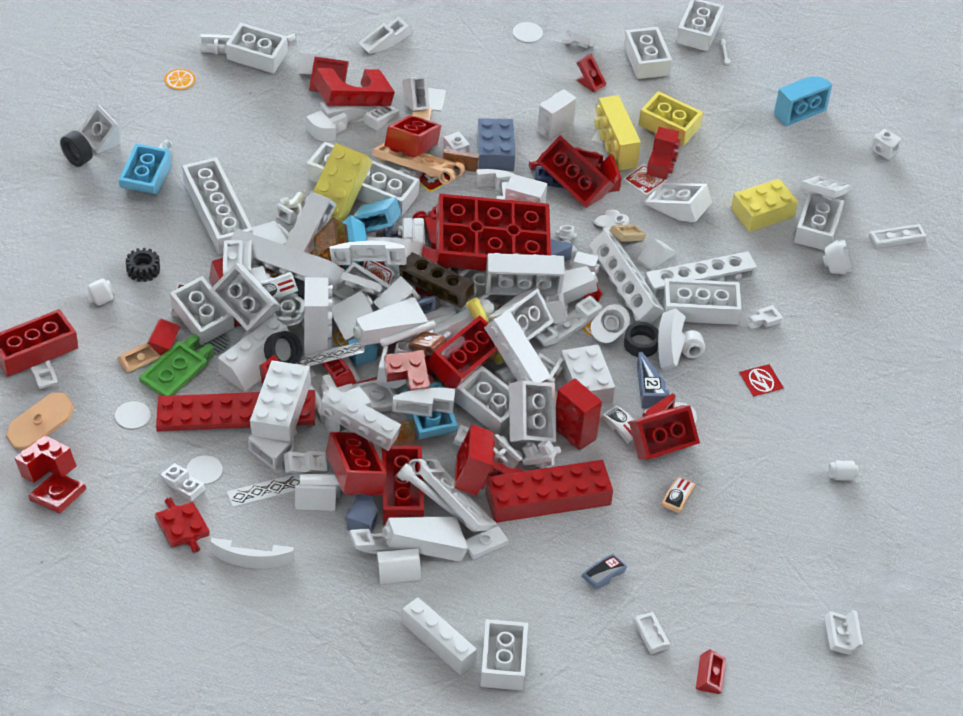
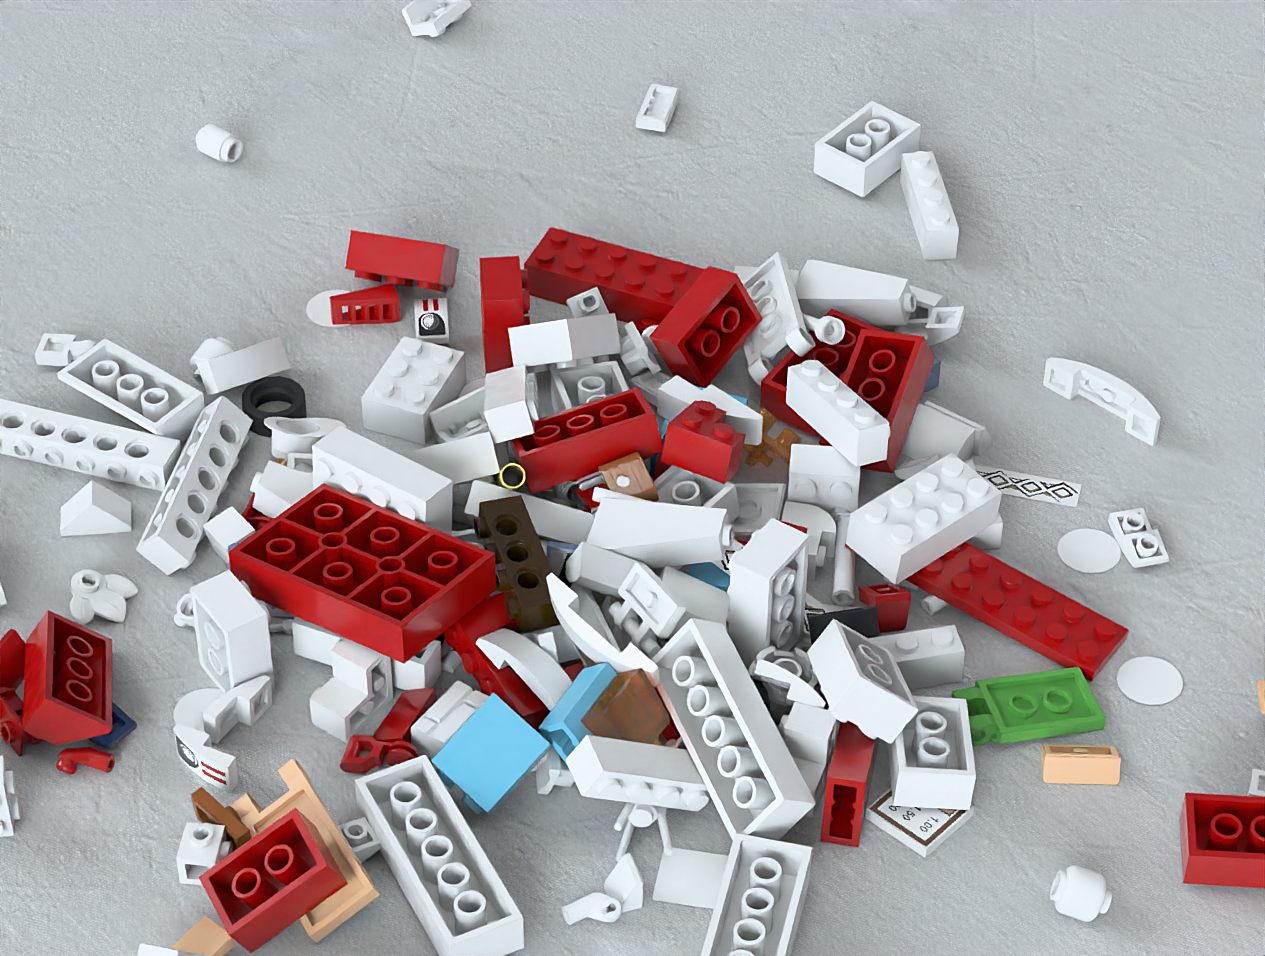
camera: 140 degrees left, 5 degrees down
(142, 272) = (964, 933): black tyre -> none
(163, 336) = (1019, 754): red slope -> none
(182, 524) = (1178, 485): red plate -> none
(237, 252) = (823, 747): white plate -> none
(343, 178) = (508, 831): light yellow brick -> none
(496, 144) = (129, 817): sand blue brick -> none
(603, 571) = (656, 182): slope -> none
(627, 233) = (107, 551): tan plate -> none
(651, 384) = (340, 340): sand blue slope -> none
(678, 494) = (447, 217): slope -> none
(710, 672) = (629, 55): red slope -> none
(761, 380) = (170, 296): red sticker -> none

